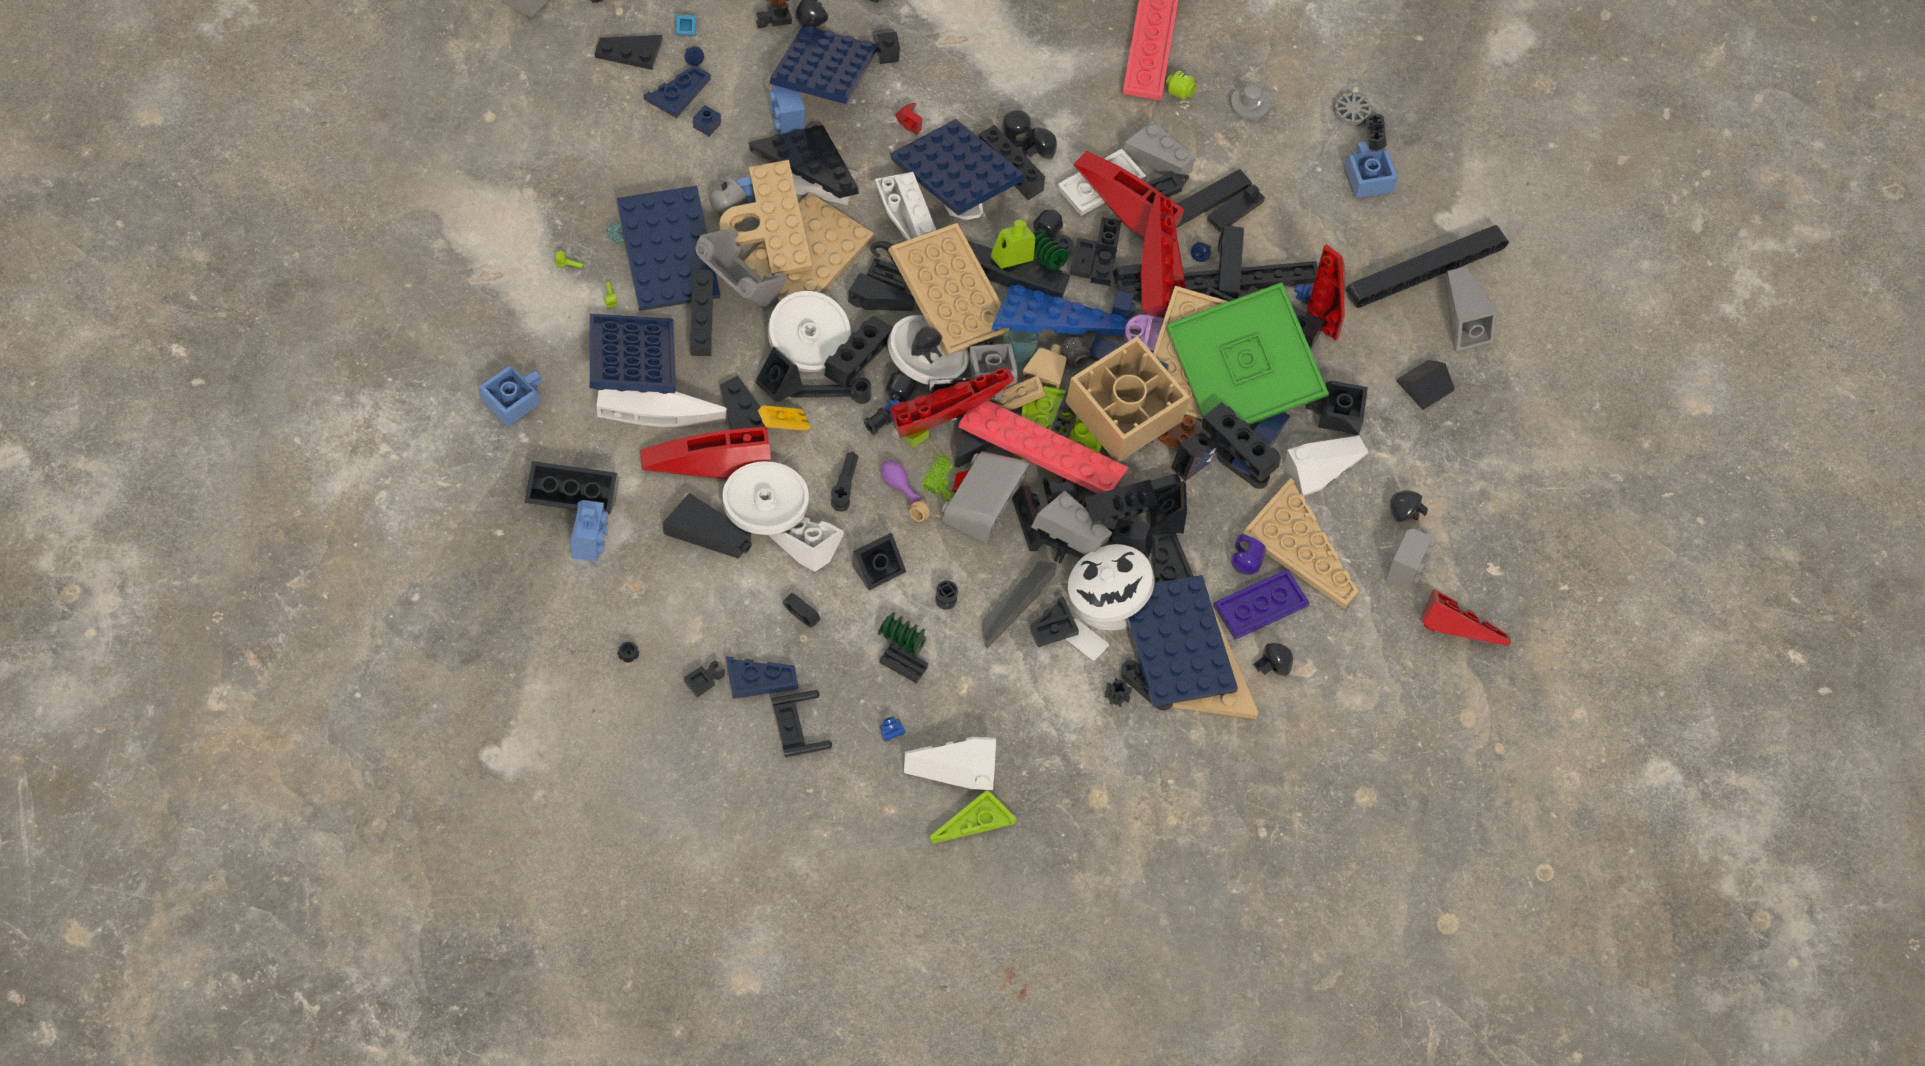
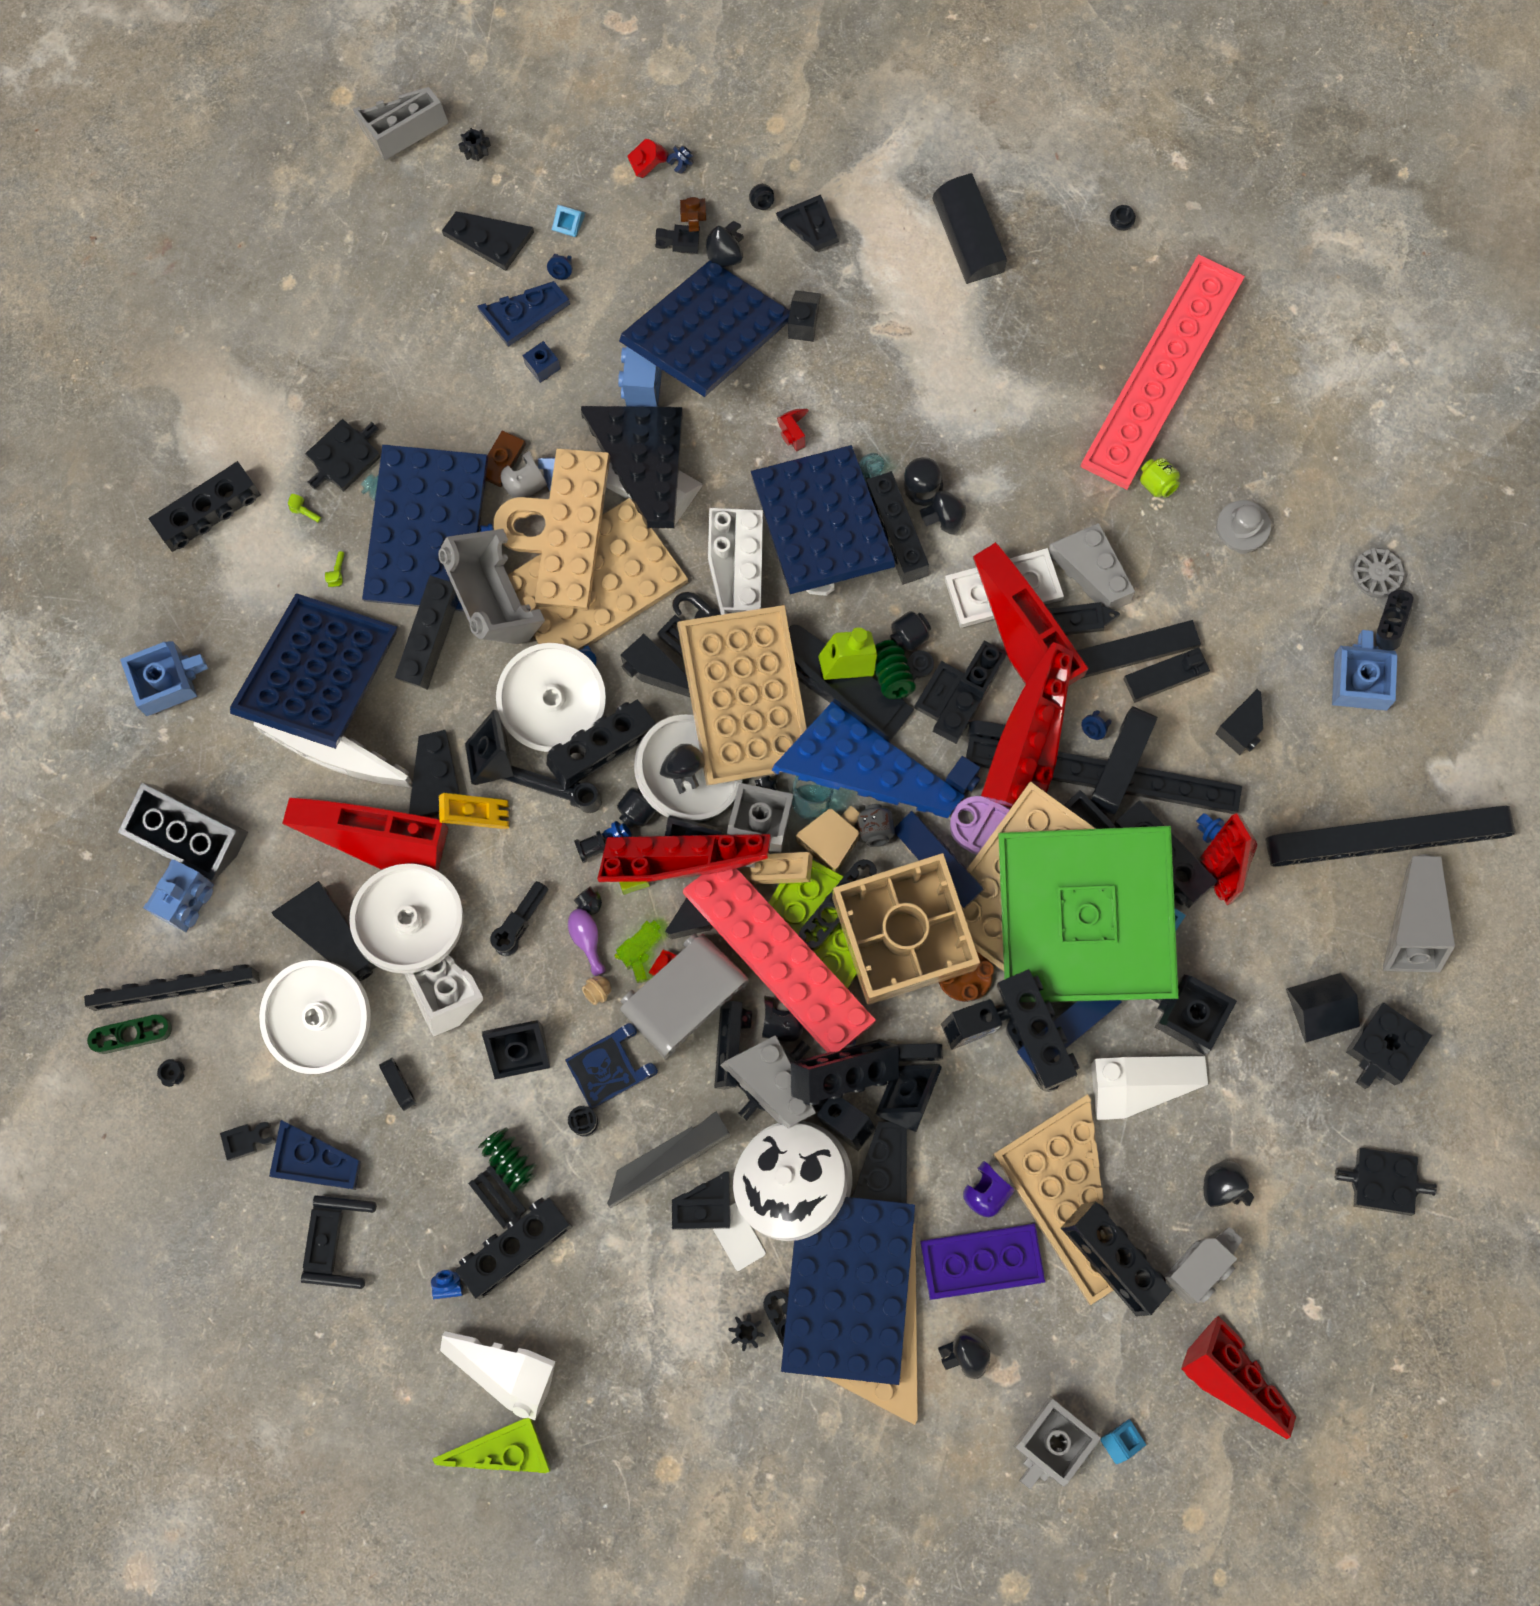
camera: 30 degrees right, 15 degrees up
(483, 279) = (190, 506): none -> black brick
(582, 218) = (342, 455): none -> black plate
(587, 628) = (108, 1031): none -> dark green beam
(601, 598) = (161, 989): none -> black plate
(706, 185) = (503, 453): none -> reddish brown plate
(723, 581) = (315, 1016): none -> white dish
(890, 454) = (589, 901): none -> black plate
(916, 716) = (471, 1267): none -> black brick
(946, 559) = (605, 1068): none -> flag
(976, 126) = (871, 465): none -> clear light blue plate
(1302, 224) = (1244, 725): none -> black slope
(1352, 567) = (1082, 1231): none -> black brick
(1357, 694) = (1055, 1462): none -> light grey hinge
(1401, 685) = (1123, 1442): none -> dark azure slope
(1477, 391) = (1371, 1051): none -> black hinge
(1509, 476) = (1385, 1181): none -> black plate

